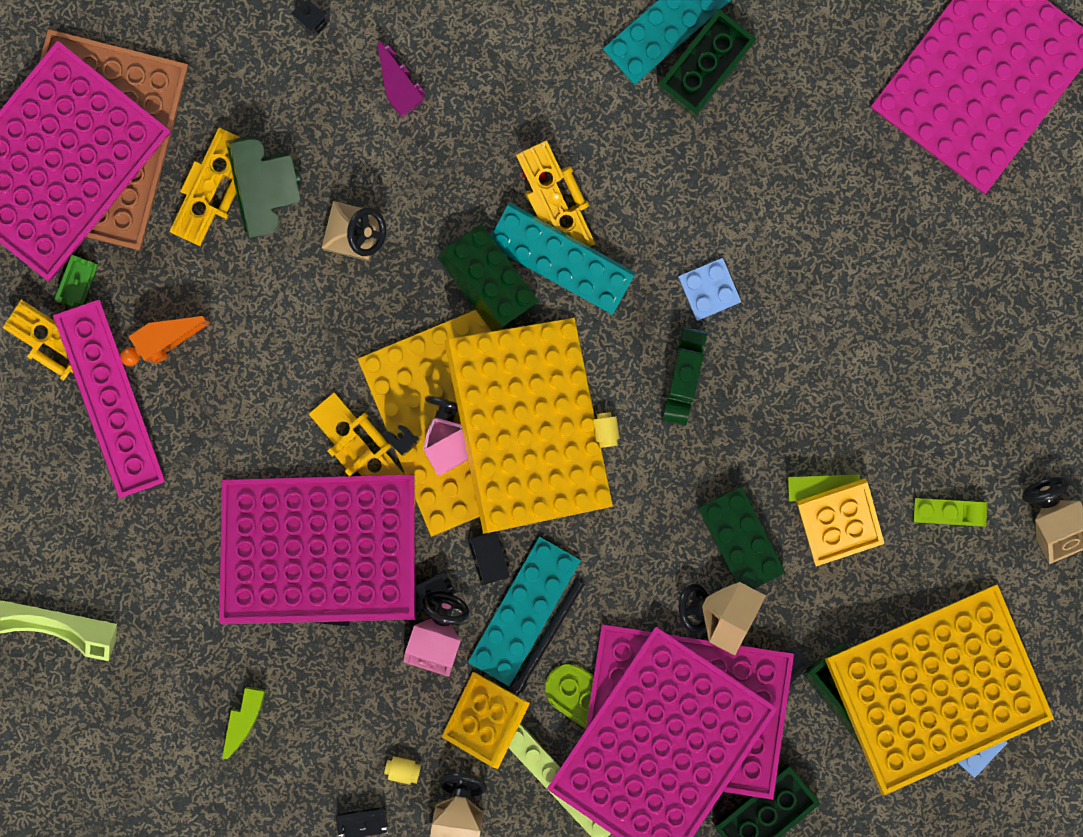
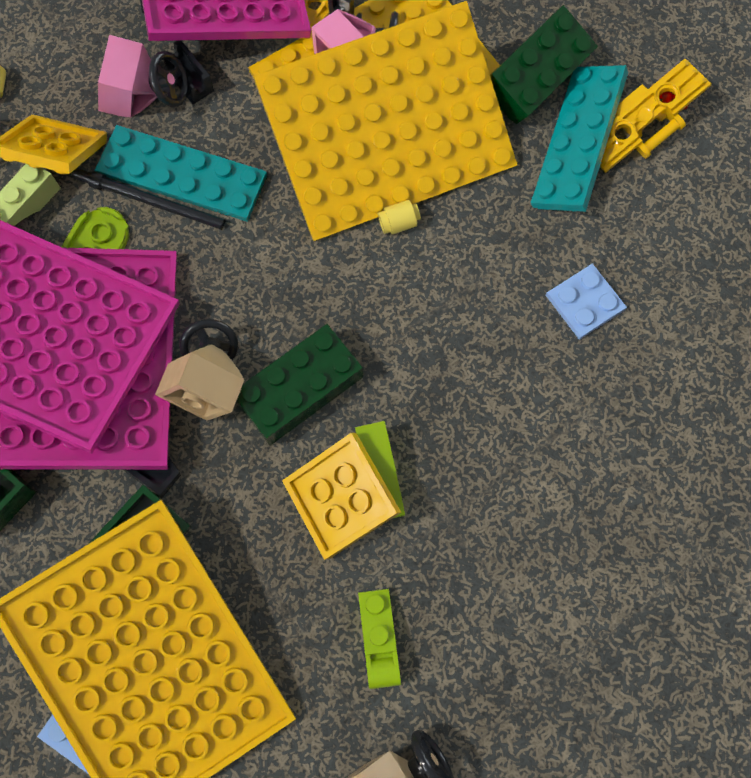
camera: 85 degrees right, 15 degrees down
(488, 558) = (232, 121): black hinge -> none
(685, 376) = (480, 281): dark green brick -> none

